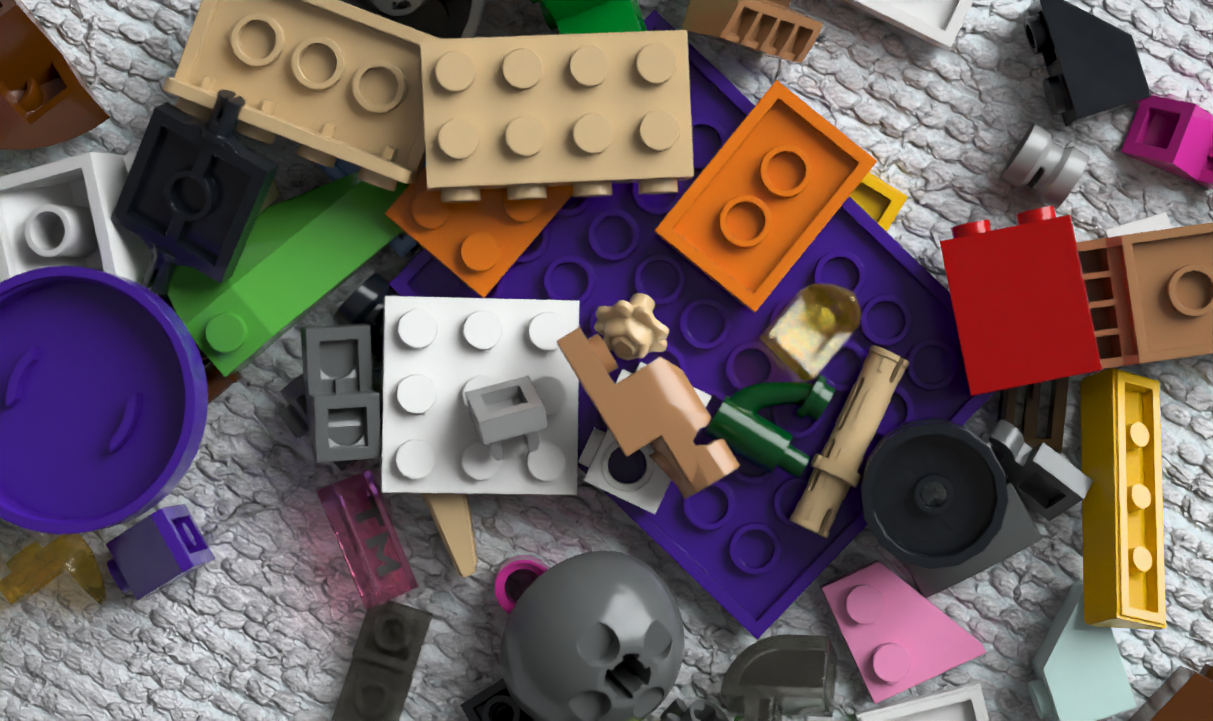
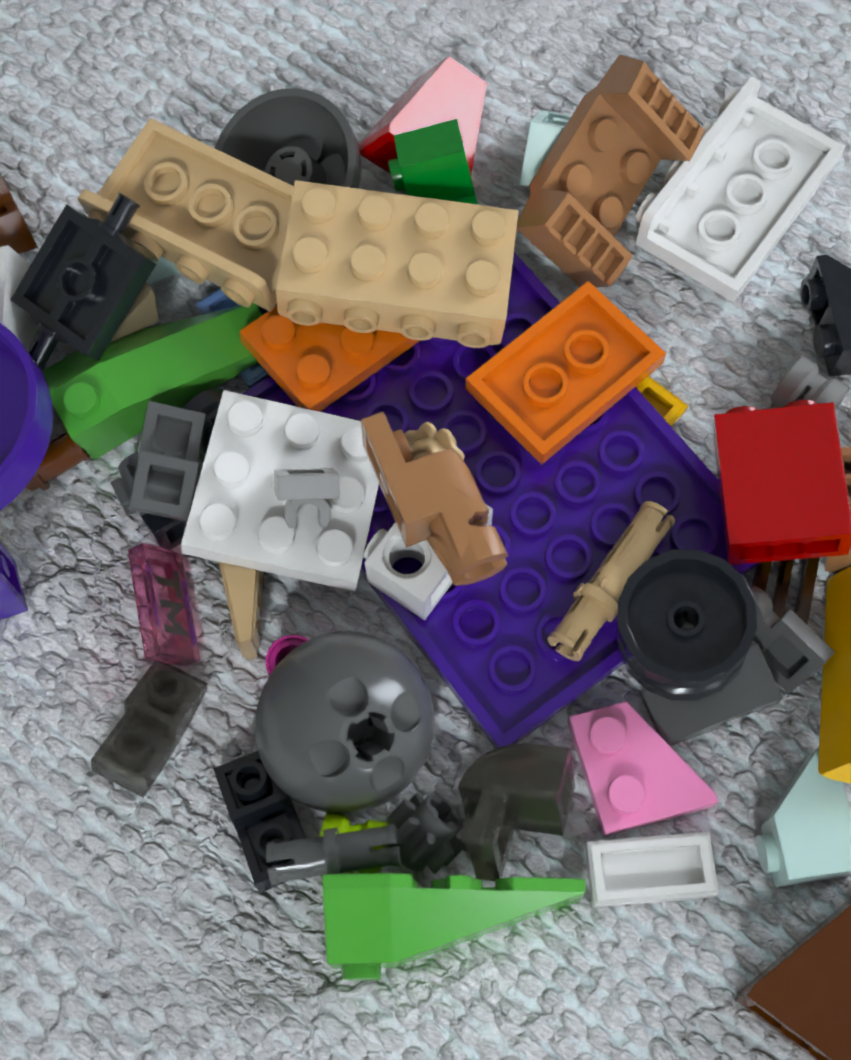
camera: 15 degrees right, 20 degrees down
(757, 437) = (533, 567): dark green plant -> none
(813, 327) = (594, 476): clear yellow plate -> none

